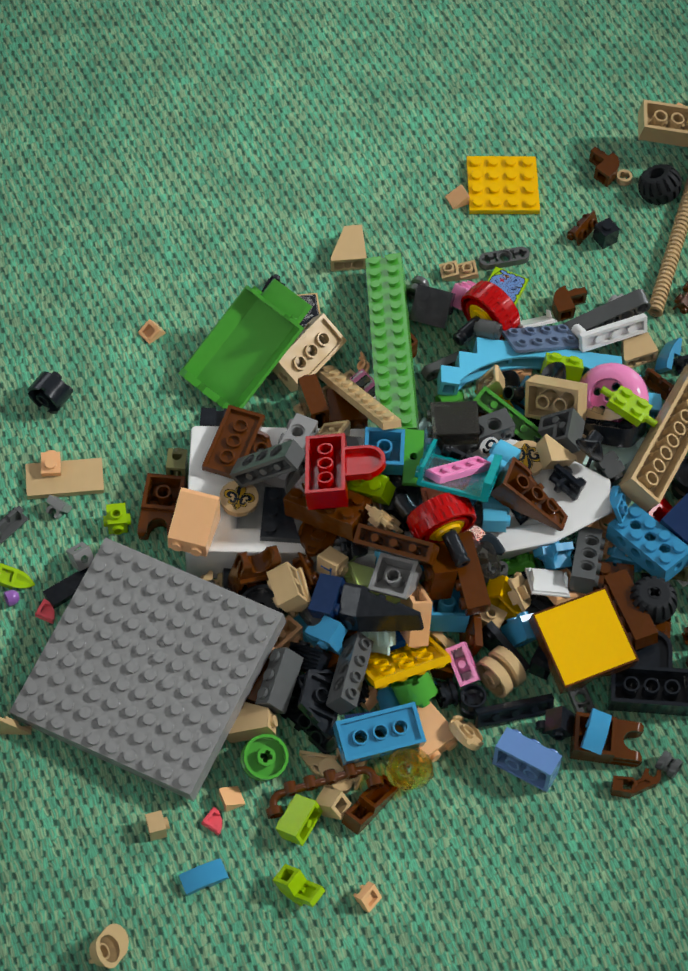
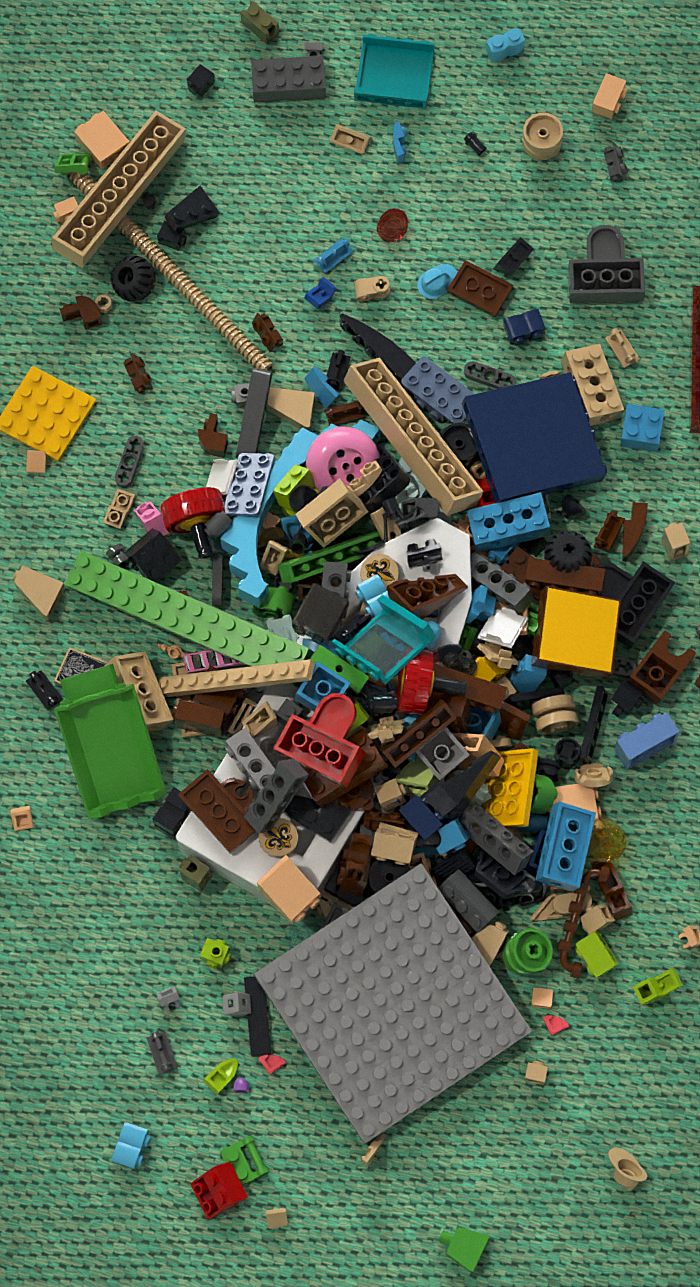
camera: 55 degrees left, 15 degrees up
(50, 391) = (43, 943): black brick -> none
(50, 463) = (120, 981): light nougat bracket -> none
(76, 478) = (139, 977): tan tile -> none
(159, 502) = (232, 908): reddish brown brick -> none
(203, 876) = (603, 1058): dark azure slope -> none
(457, 469) = (380, 639): bright pink tile -> none
(463, 664) = (541, 741): bright pink brick -> none
(486, 445) = (351, 596): white sticker -> none
(509, 282) = (161, 480): tile -> none
(553, 453) = (393, 550): tan slope -> none
(563, 427) = (368, 524): dark grey brick -> none
(596, 731) = (660, 671): dark azure slope -> none
(605, 233) = (159, 358): black brick -> none
(610, 333) = (279, 424): white piece -> none
(618, 503) = (464, 525): dark azure slope -> none
(629, 406) = (374, 456): lime plate -> none

